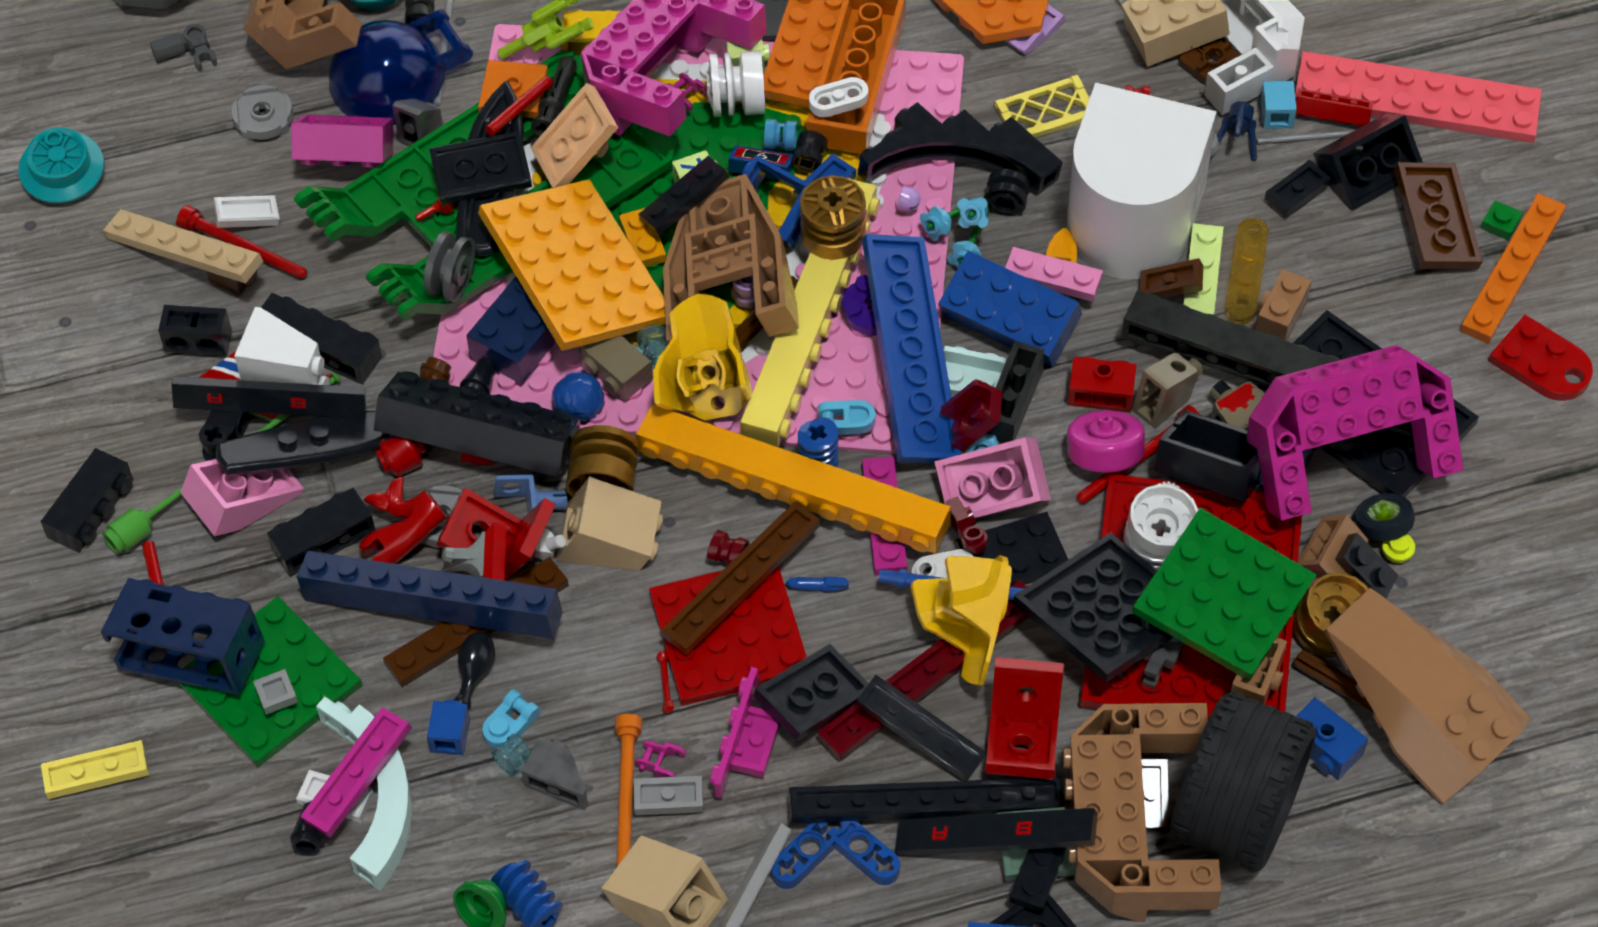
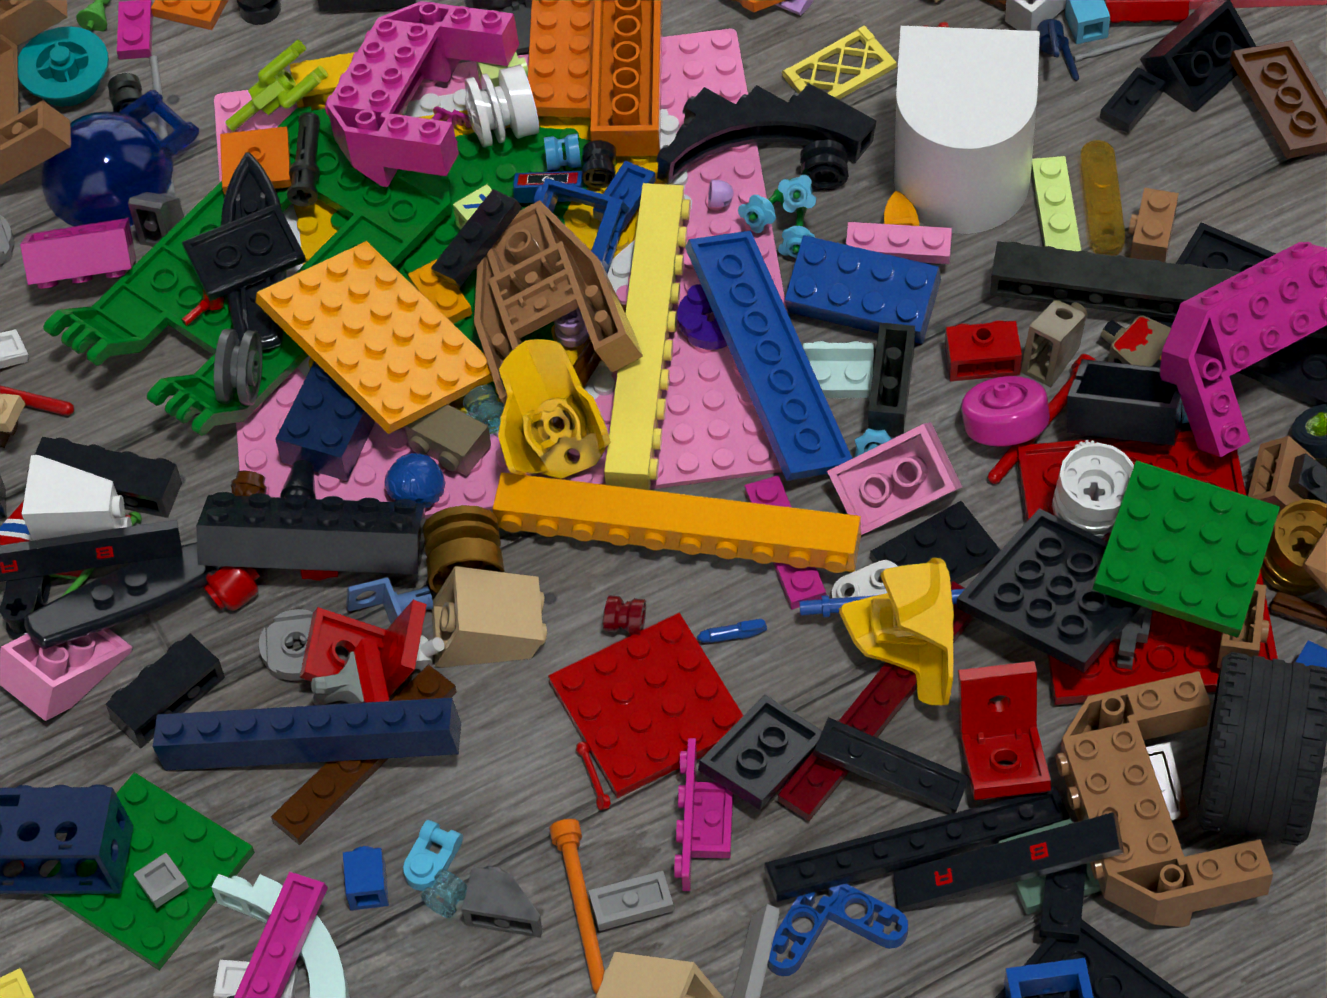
camera: 10 degrees left, 0 degrees up
(402, 537) = (259, 677): red piece -> none
(474, 661) = (376, 797): black piece -> none
(519, 105) = (269, 176): red bar -> none
(575, 137) = (341, 198): light nougat plate -> none
(650, 747) = (611, 852): dark pink piece -> none
(740, 578) = (648, 643): reddish brown plate -> none
(819, 441) = (696, 473): blue piece -> none
(833, 217) = (649, 228): pearl gold wheel -> none
(837, 97) = (615, 98): white plate -> none
(857, 415) = (728, 439): medium azure plate -> none
(963, 521) = (874, 529): dark red plate -> none
(974, 412) = (857, 409): dark red bracket -> none
(1173, 279) = (1029, 222): reddish brown plate -> none

